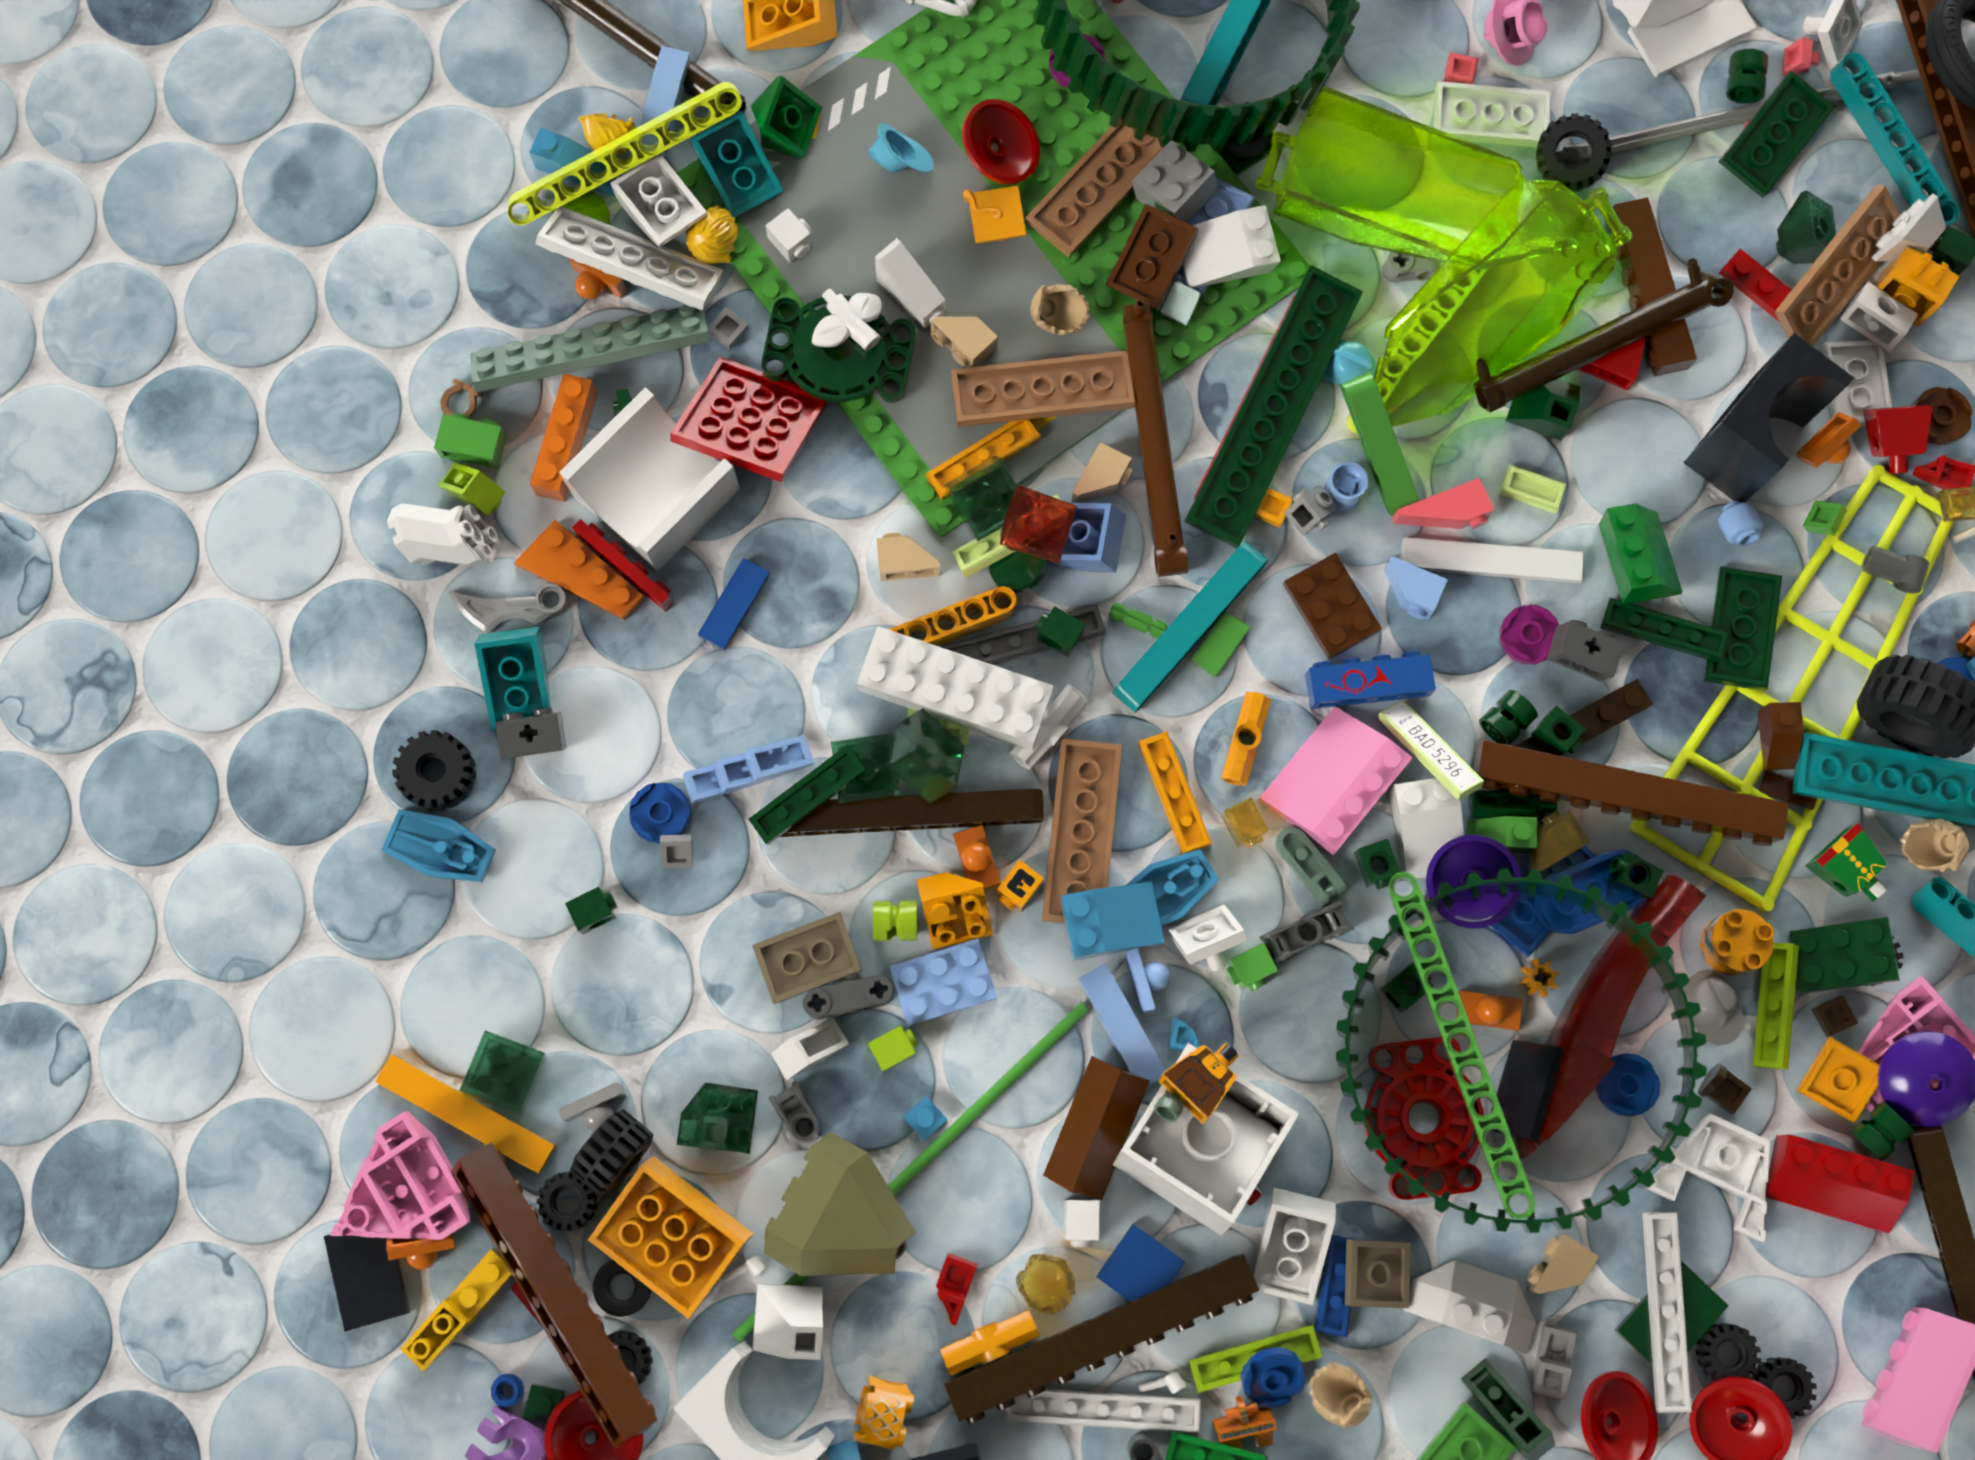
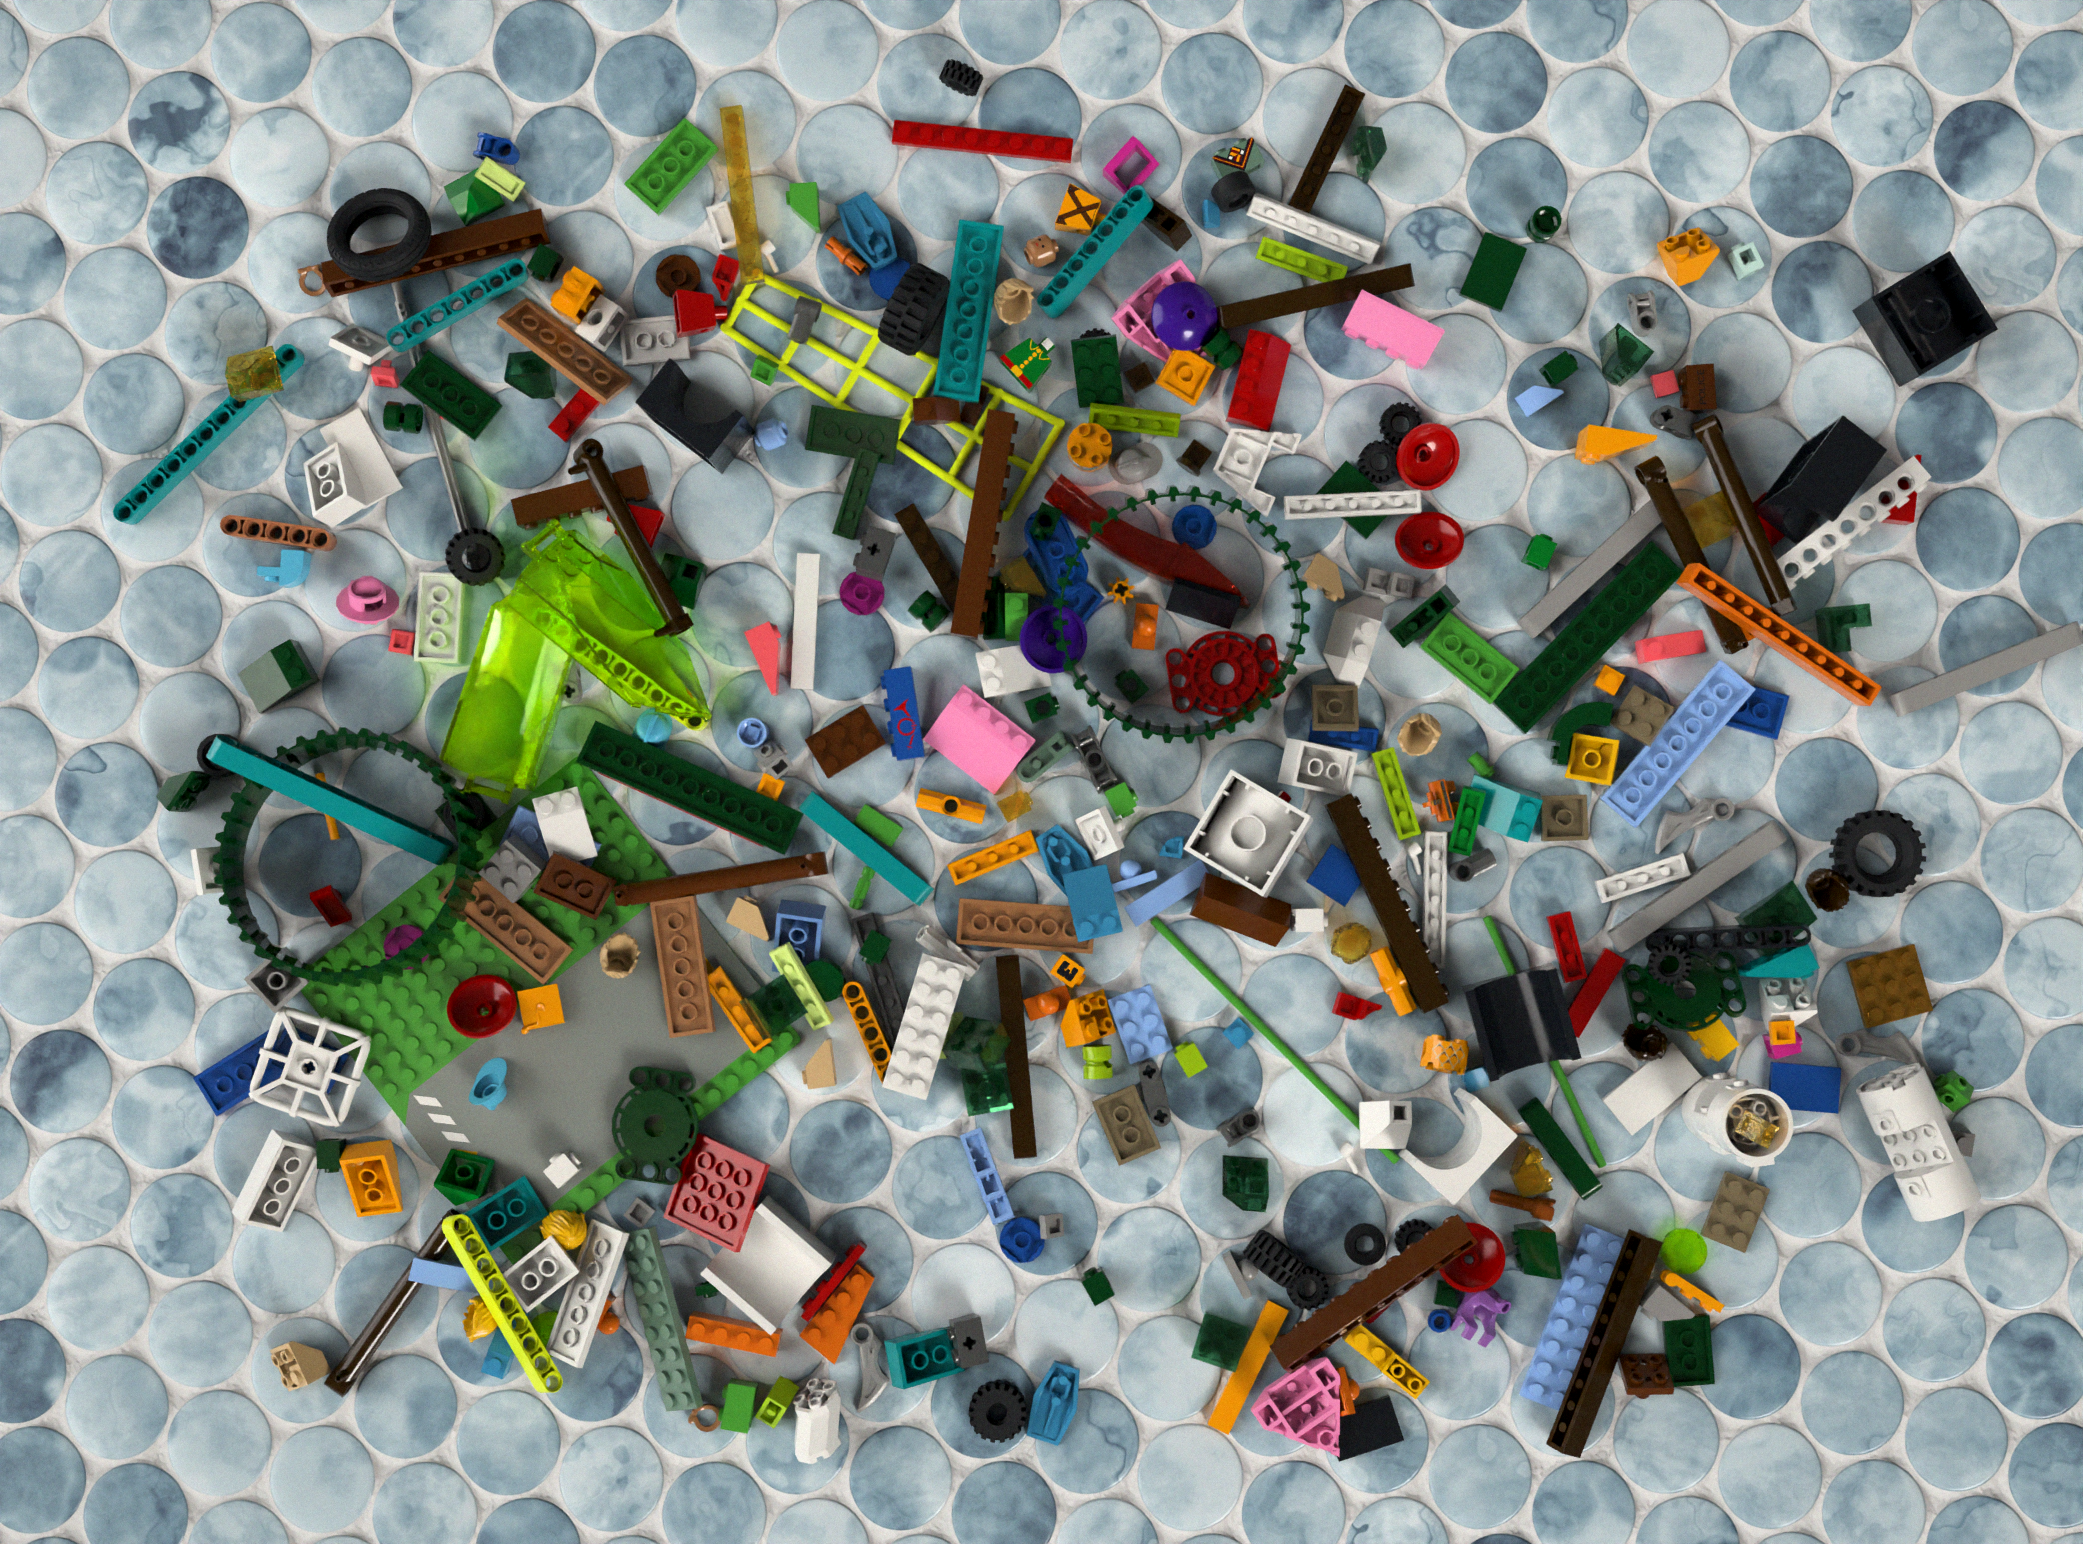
camera: 85 degrees left, 10 degrees up
(670, 1236) = (1329, 1212): light orange slope -> none
(734, 604) = (860, 1194): blue tile -> none
(807, 794) = (1009, 1131): dark green plate -> none
(809, 1048) = (1192, 1119): white slope -> none
(838, 1216) = (1311, 1093): olive panel -> none
(848, 320) = (634, 1119): white plant -> none
(908, 284) = (603, 1072): white slope -> none
(965, 337) = (643, 1026): tan slope -> none
(1037, 524) = (797, 968): clear red slope -> none
(1169, 1107) = (1231, 862): sand green hinge -> none
(1180, 303) = (609, 861): light aqua slope -> none
(1202, 1079) = (1210, 839): torso -> none
(1273, 1377) = (1408, 781): blue tile -> none
(1379, 442) = (722, 709): bright green beam -> none
(1414, 587) = (830, 679): light blue slope -> none
(1431, 750) = (956, 670): tile -> none
(1460, 1060) = (1189, 649): bright green beam -> none
(1532, 489) = (747, 589): yellowish green tile -> none
(1545, 732) = (940, 585): dark green brick -> none
(1639, 554) = (798, 510): green slope -> none
(1829, 442) = (704, 364): orange tile -> none
(1915, 228) = (536, 295): white slope -> none

